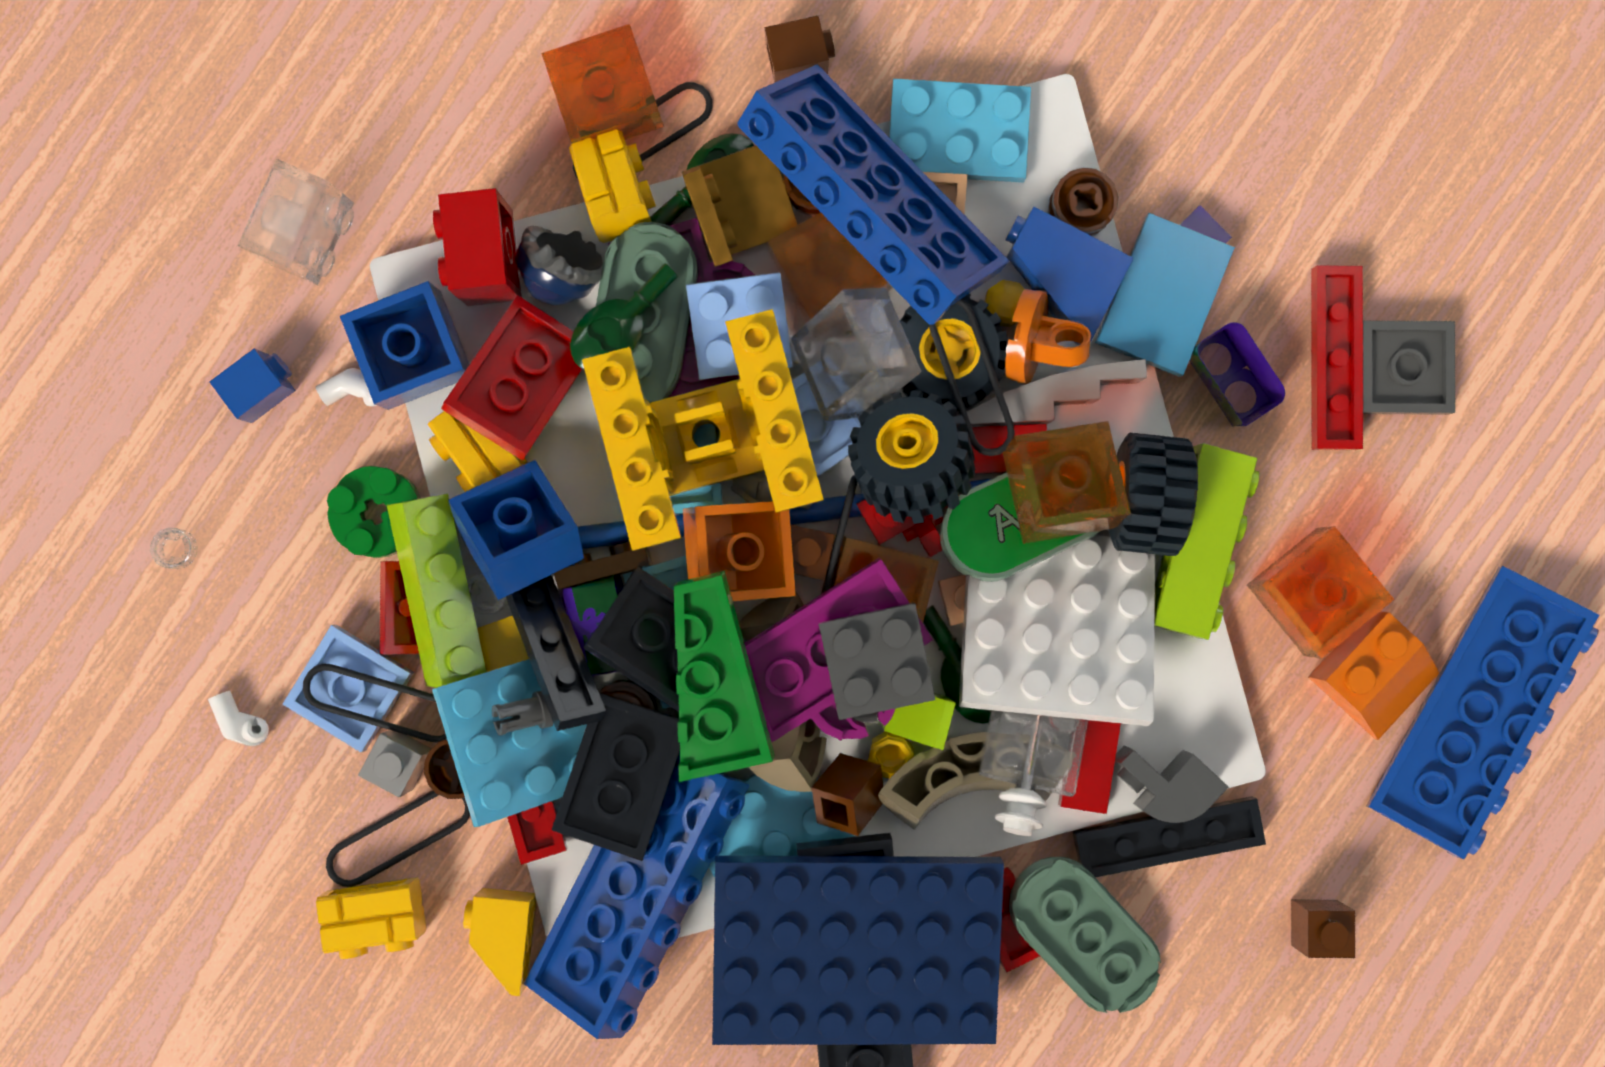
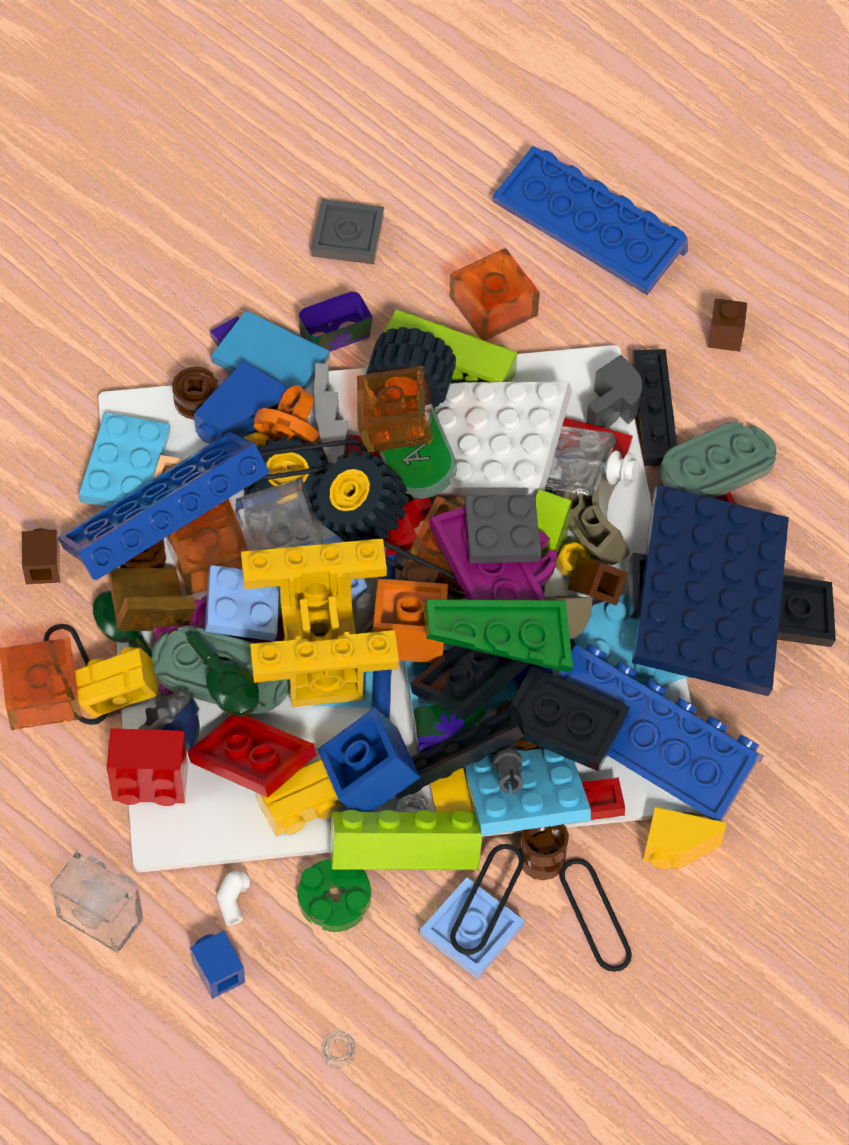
camera: 75 degrees left, 30 degrees down
(237, 725) = (491, 1016): white arm -> none
(371, 916) = (656, 932): yellow brick -> none
(395, 762) = (535, 895): light grey brick -> none
(396, 624) = (425, 882): red plate -> none
(406, 345) = (212, 831): blue brick -> none
(621, 561) = (402, 711): dark brown plate -> none
(1336, 357) = (333, 268): red plate -> none
(1376, 673) = (556, 274): orange slope -> none

